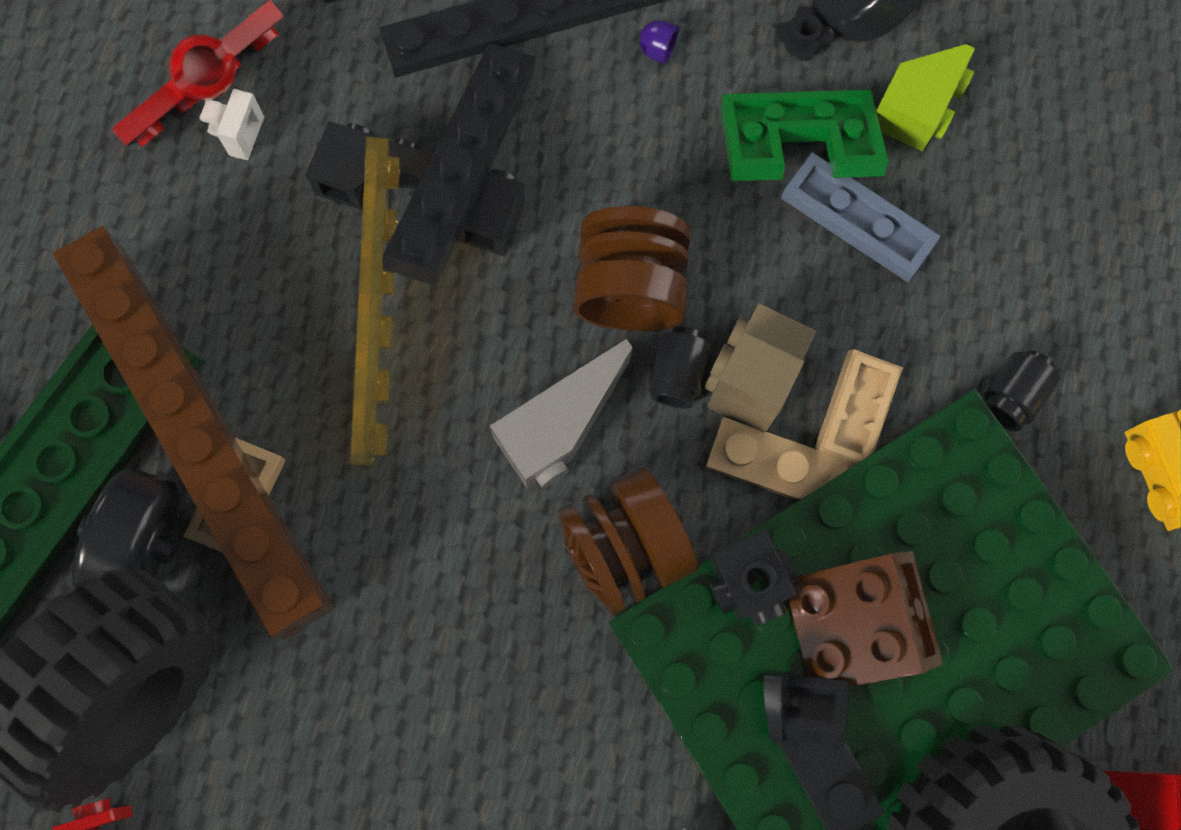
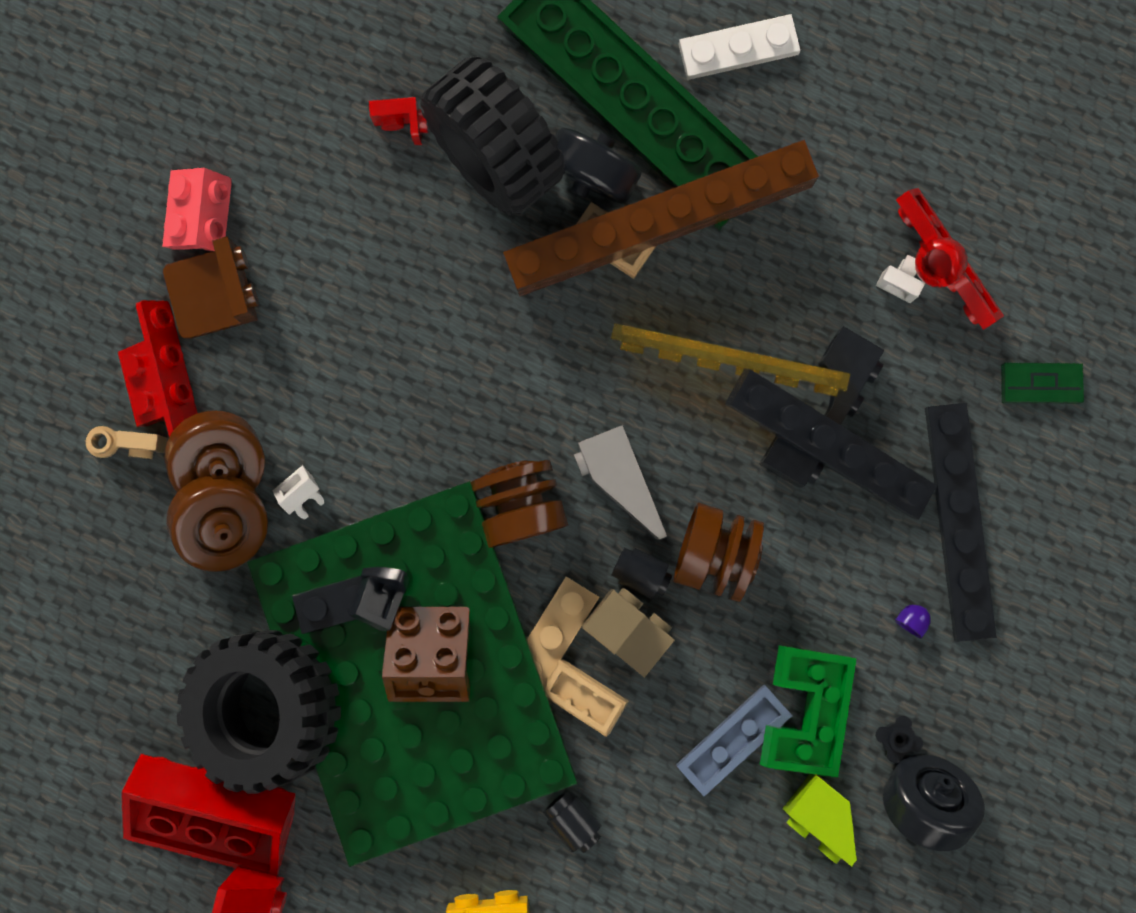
camera: 105 degrees right, 10 degrees up
(772, 568) = (486, 584): black brick -> none

